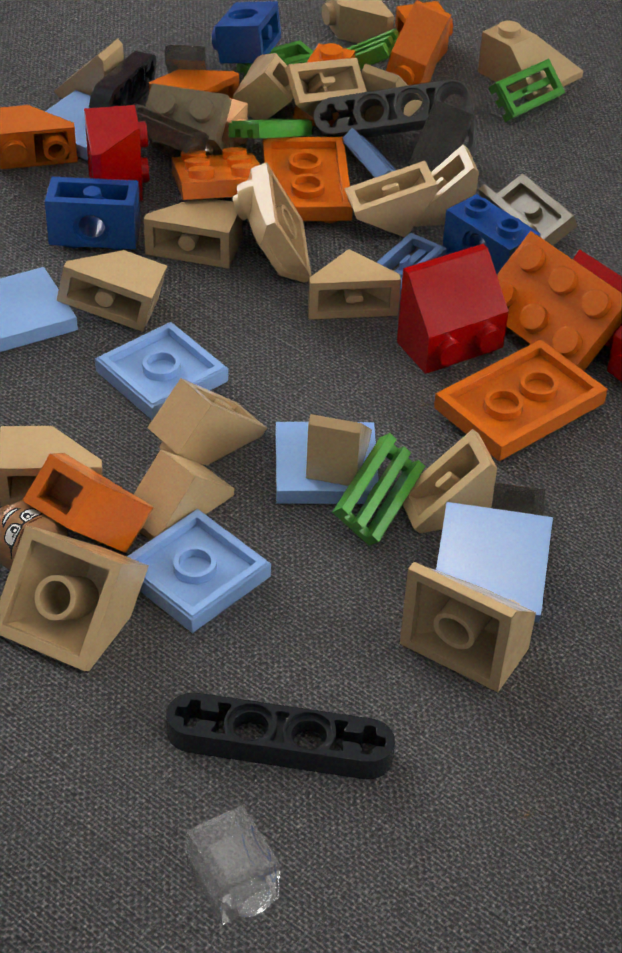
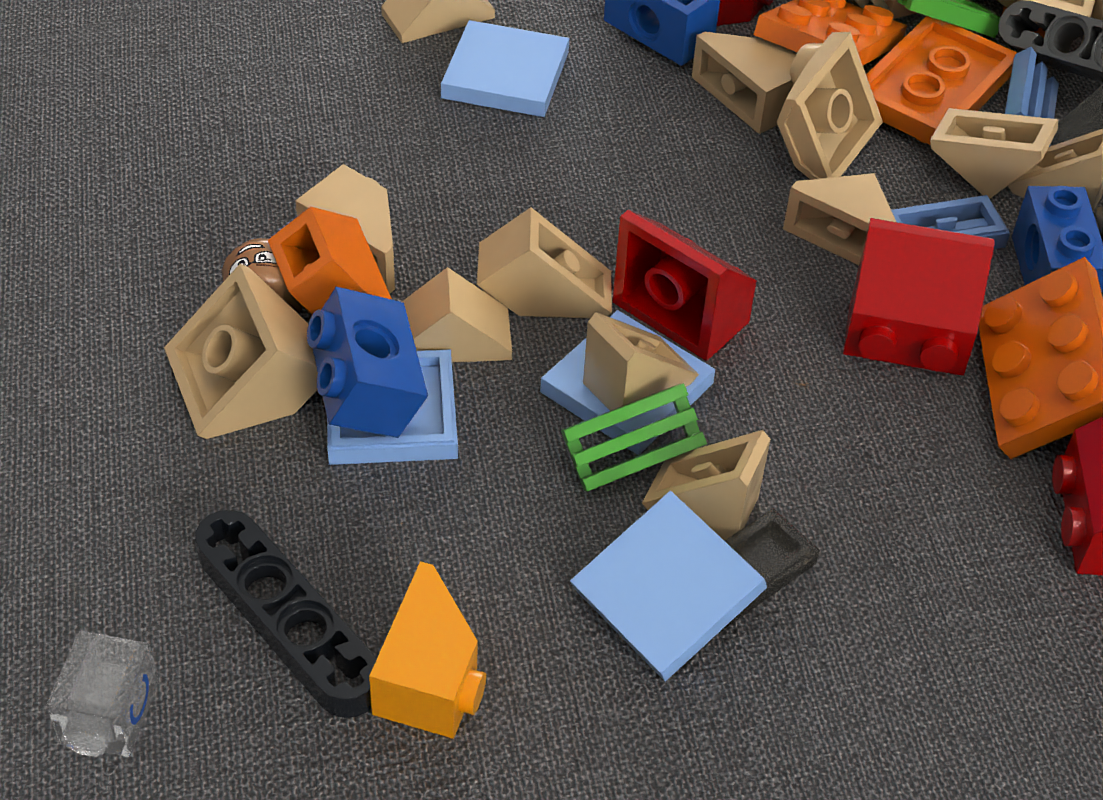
camera: 40 degrees right, 5 degrees up
(113, 286) = (604, 90): tan slope -> none
(153, 365) = (577, 192): light blue tile -> none
(177, 540) = (366, 362): none -> blue brick
(305, 380) = (679, 286): none -> red slope
(408, 695) = (427, 661): none -> light orange slope
(464, 626) = (562, 630): tan slope -> none
(520, 399) = (905, 439): orange plate -> none

